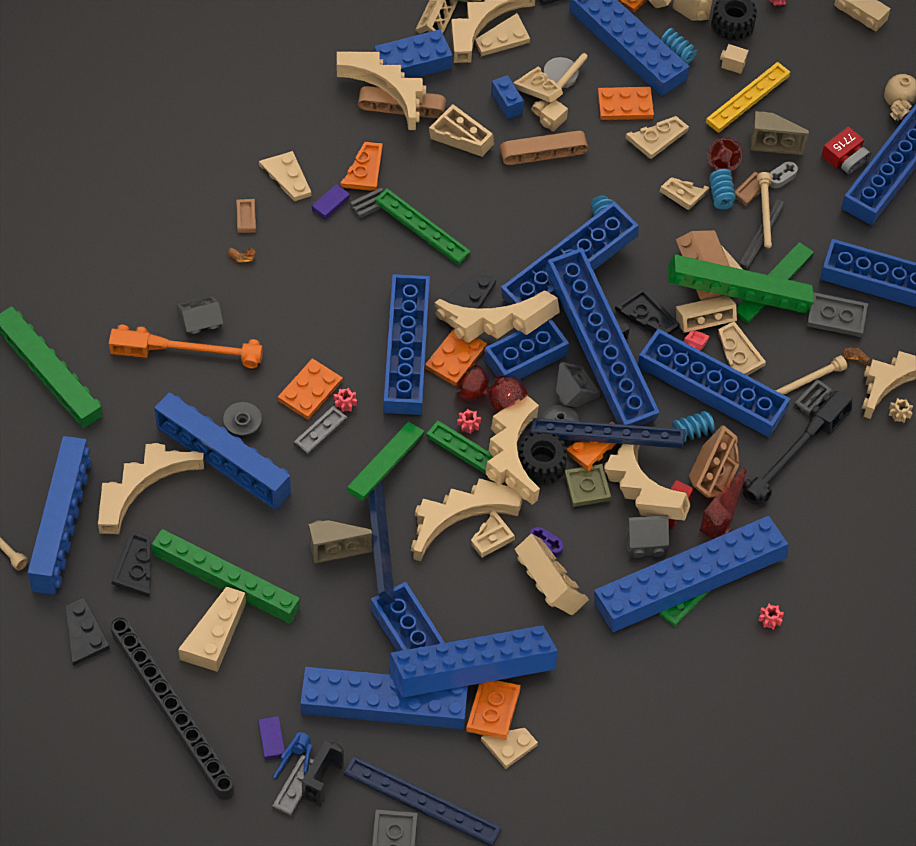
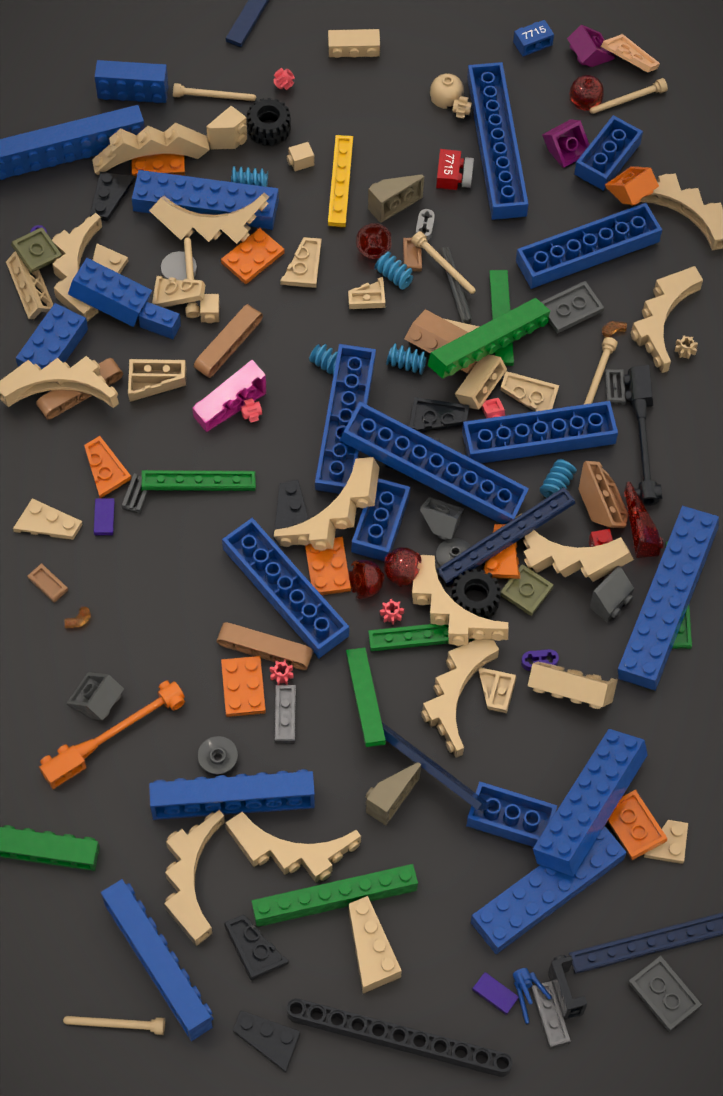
camera: 40 degrees left, 5 degrees up
(221, 524) = (288, 855): none -> tan arch
(352, 373) = (264, 645): none -> medium nougat beam
(486, 48) = (109, 292): none -> blue brick
(503, 186) = (229, 396): none -> wedge
(510, 207) = (251, 410): none -> coral gear
(595, 42) = (183, 221): none -> tan arch
(661, 253) = (407, 358): none -> dark azure piece

